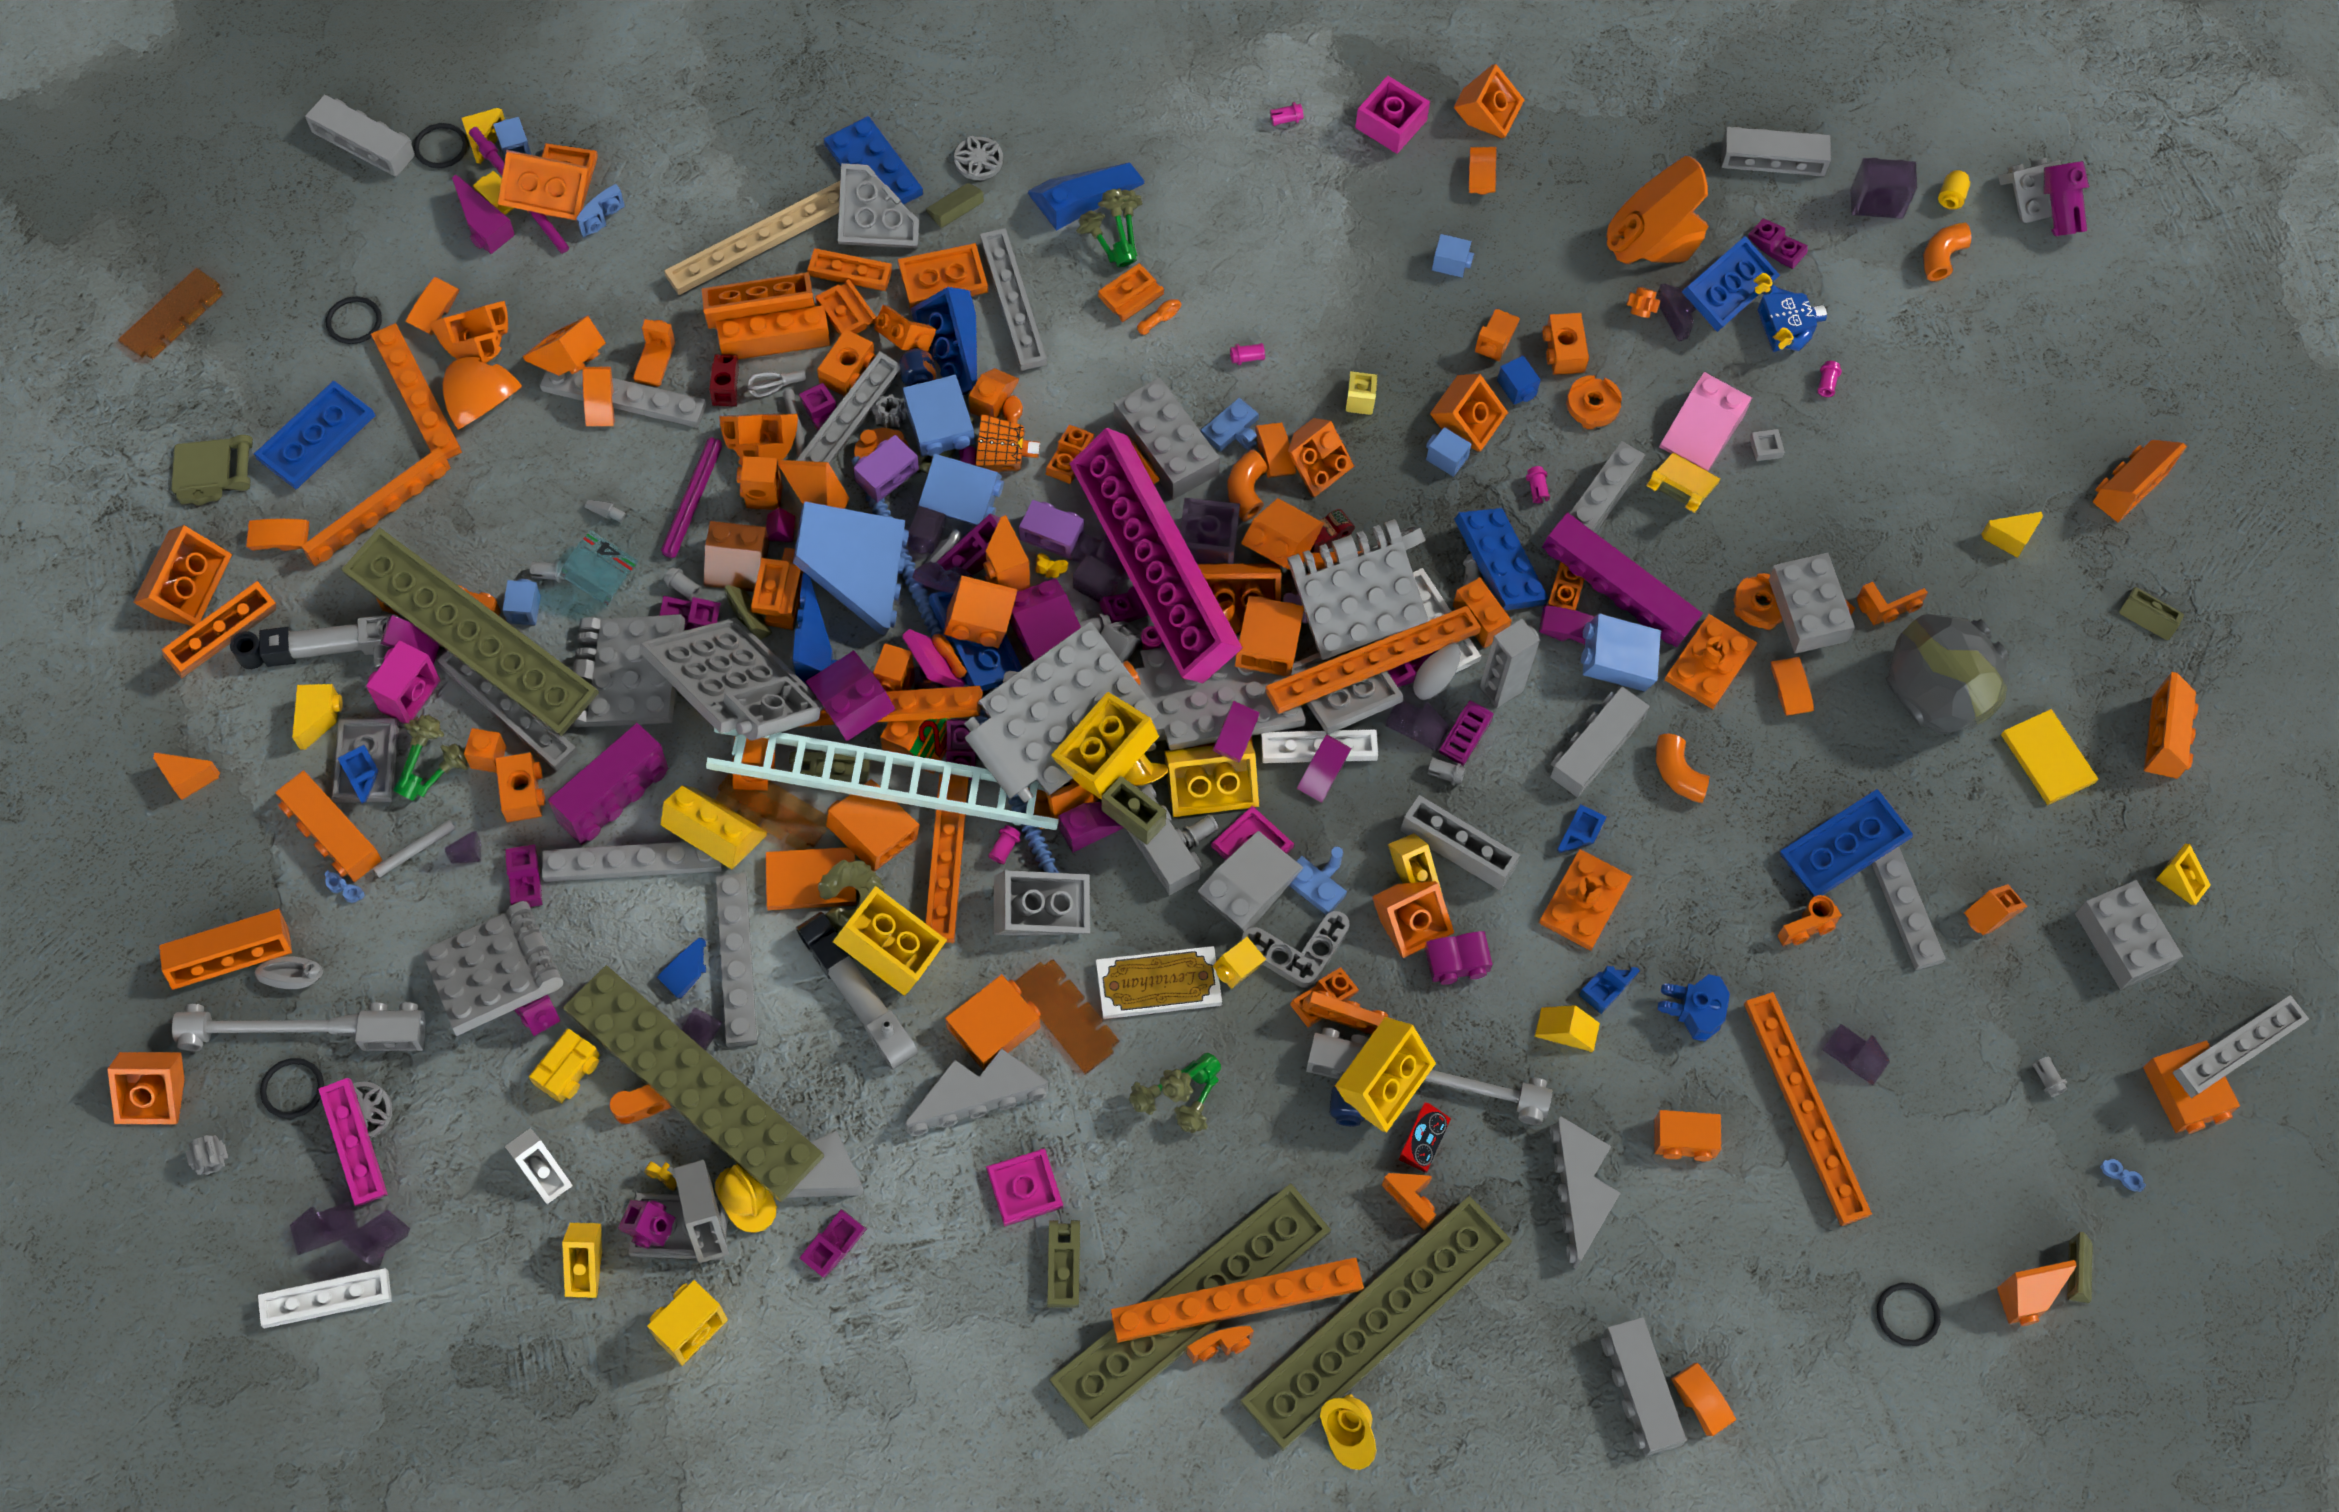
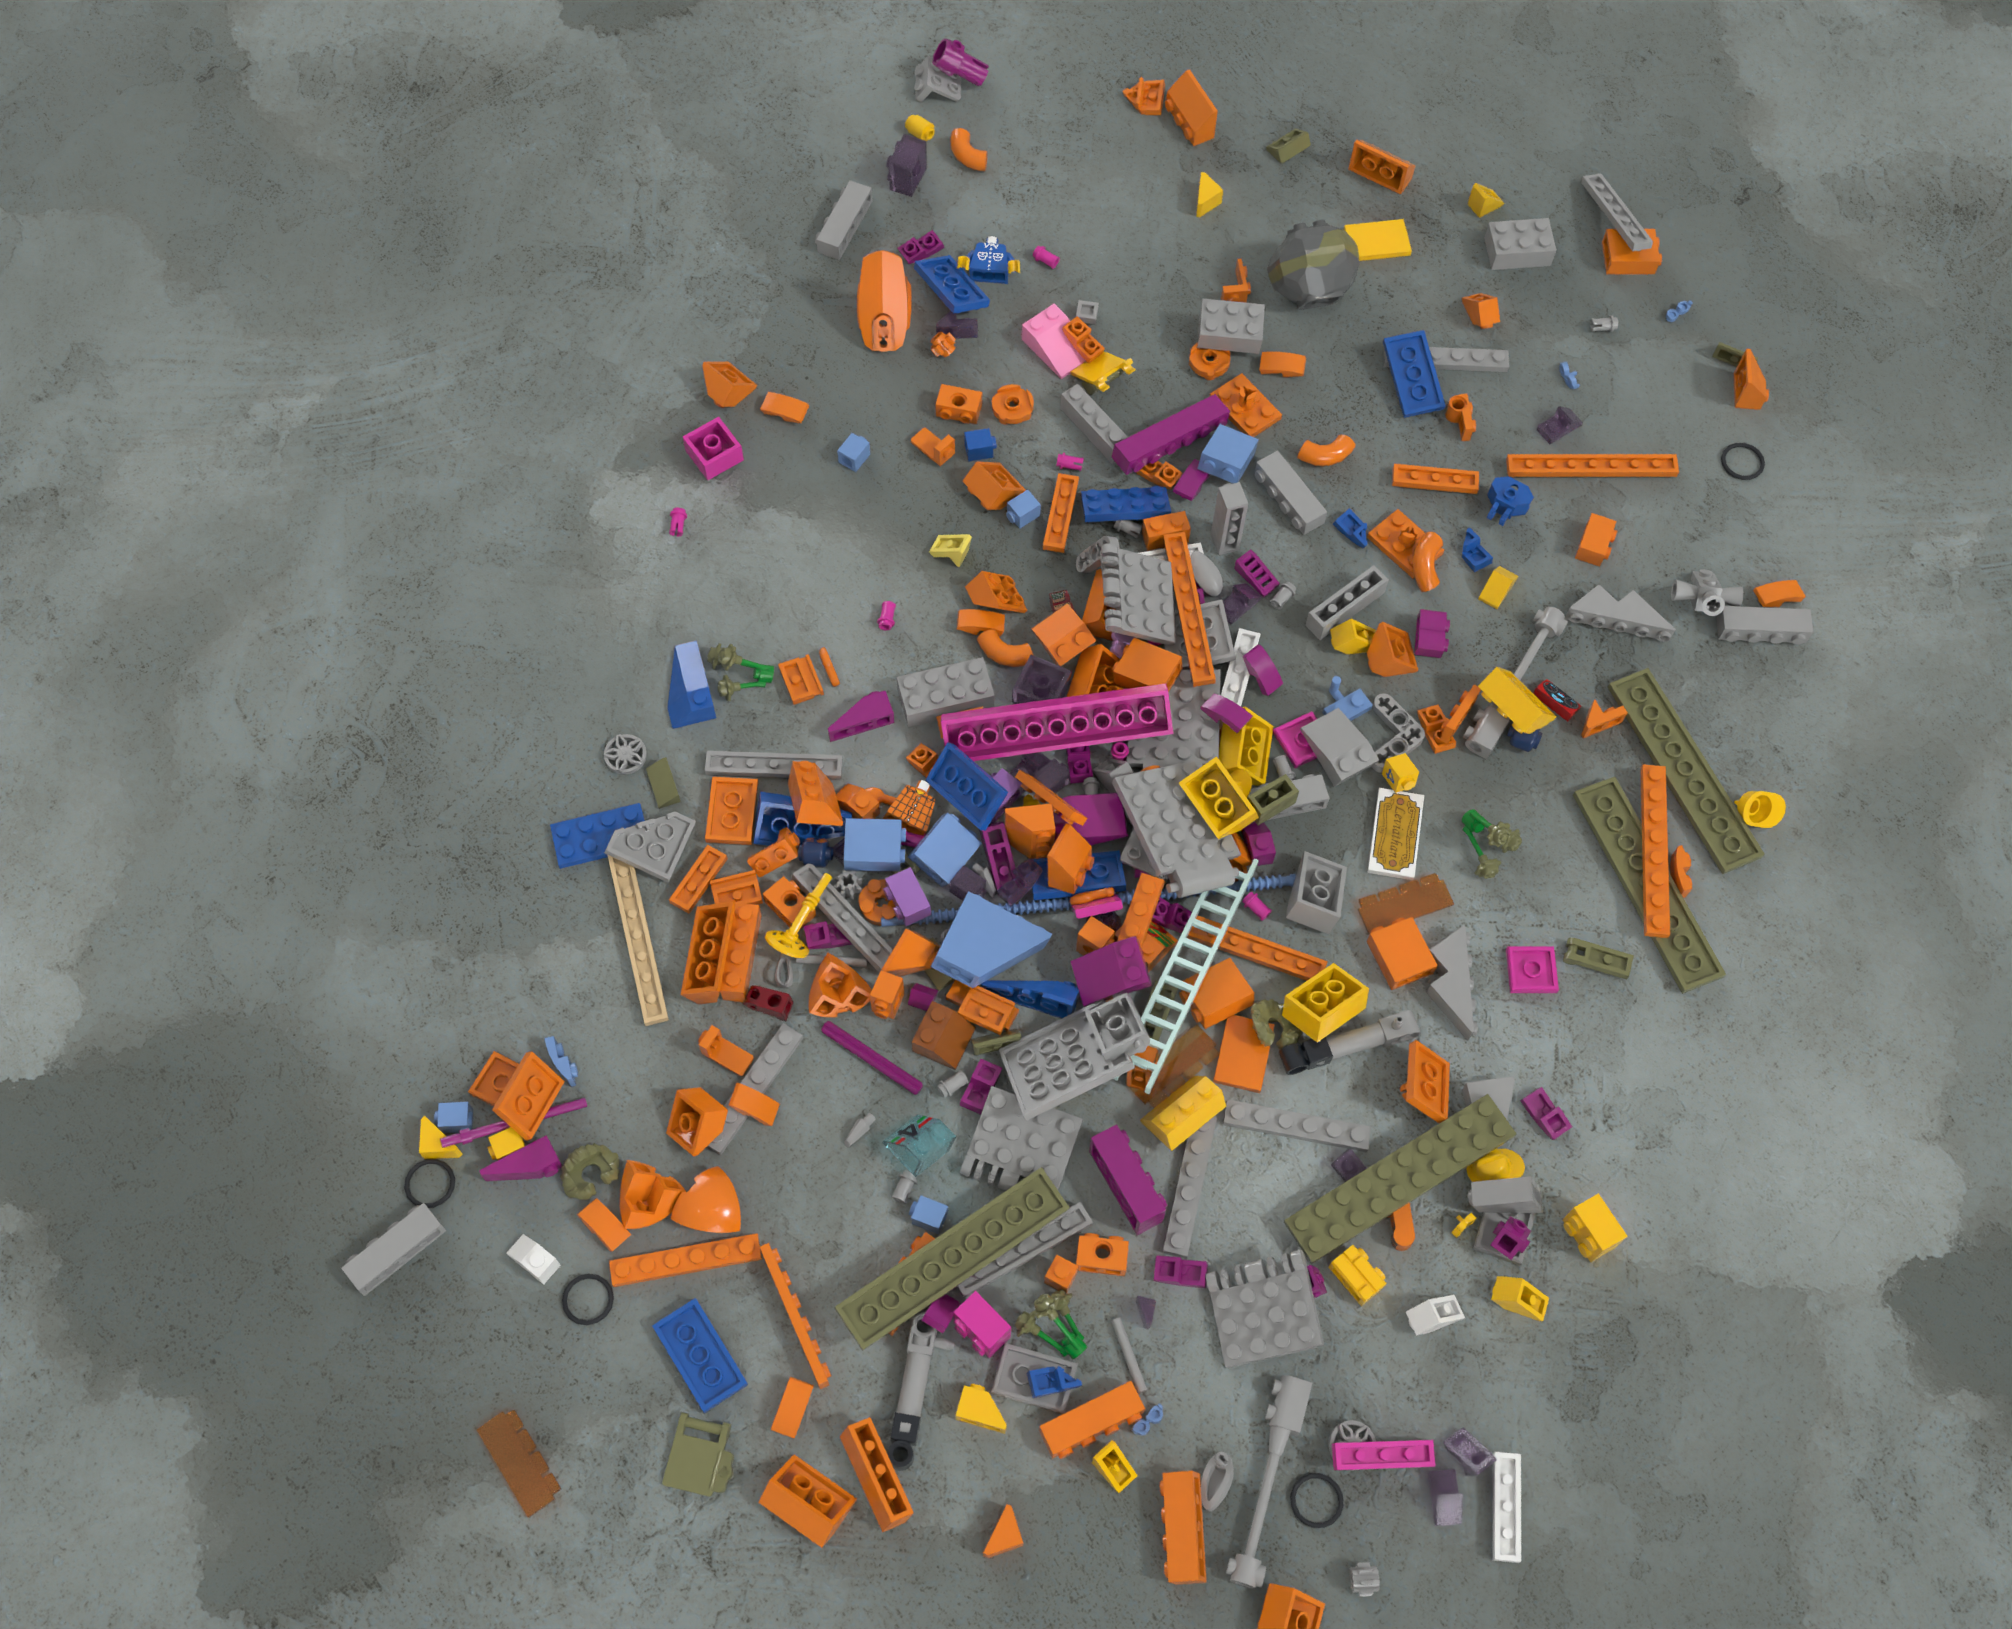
camera: 70 degrees left, 0 degrees up
(281, 861) = (1114, 1466): none -> yellow slope
(379, 257) = (533, 1258): none -> white slope
(501, 264) = (579, 1159): none -> olive piece
(685, 969) = (1298, 1165): blue slope -> none
(804, 369) = (789, 937): none -> yellow dish
(822, 1083) = (1427, 1082): none -> orange plate
(976, 338) = (813, 795): none -> orange slope
(1037, 481) = (966, 786): none -> blue plate
(1050, 570) = (1045, 795): none -> orange plate
(1107, 367) = (867, 714): none -> magenta slope
(1232, 425) = (945, 646): medium blue plate -> none
(1461, 494) = (1061, 513): none -> orange plate
(1557, 918) = (1424, 561): none -> orange cylinder
(1657, 1294) = (1706, 593): none -> light grey brick
(1698, 912) = (1435, 478): none -> orange plate
(1717, 447) = (1079, 336): none -> orange slope
(1943, 1046) = (1569, 378): none -> medium blue piece
(2140, 425) = (1147, 96): none -> orange slope

